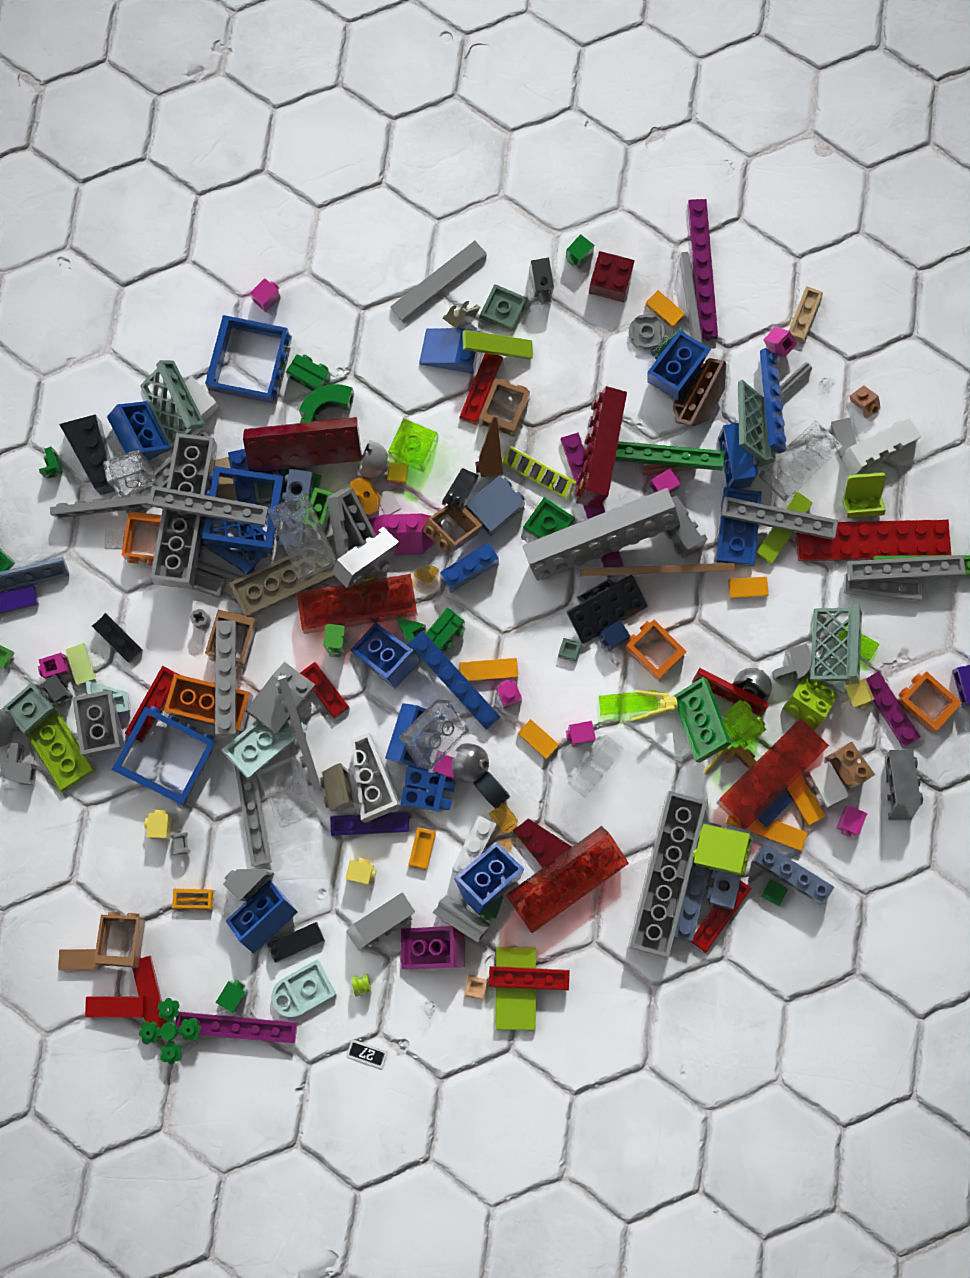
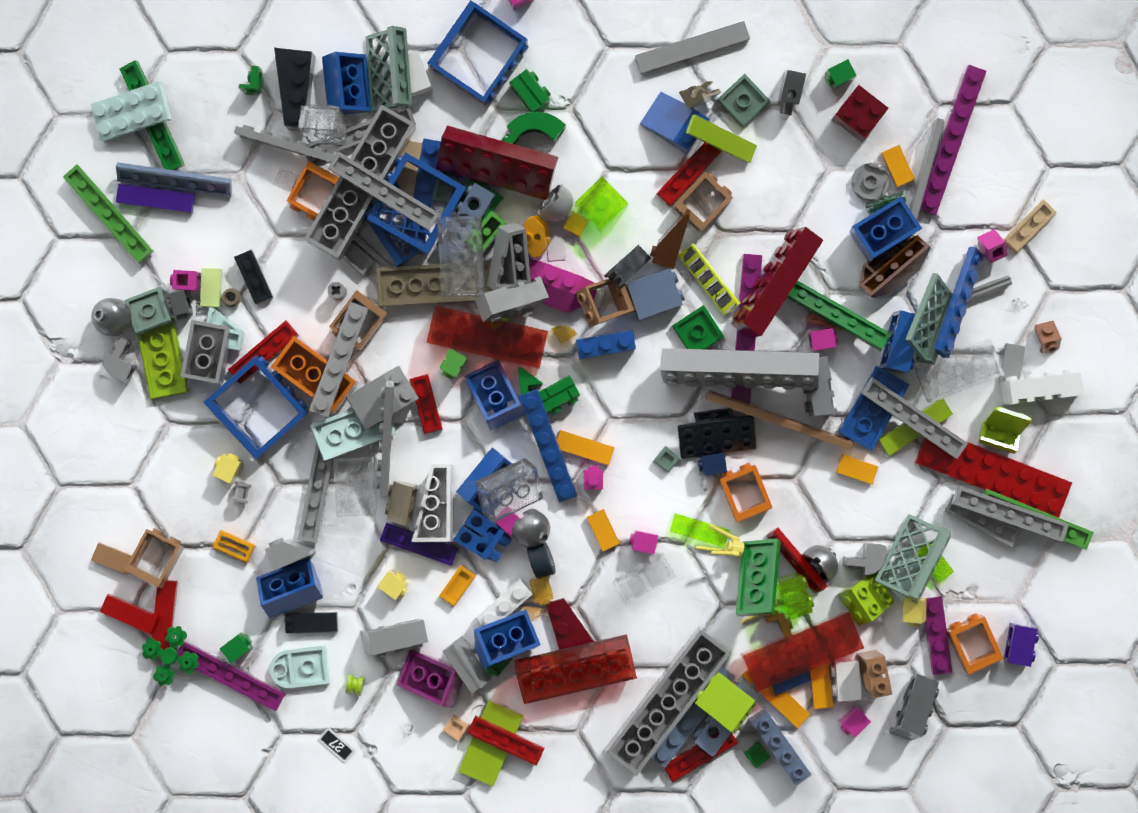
camera: 20 degrees right, 10 degrees up
(99, 661) = (225, 297): none -> dark tan plate

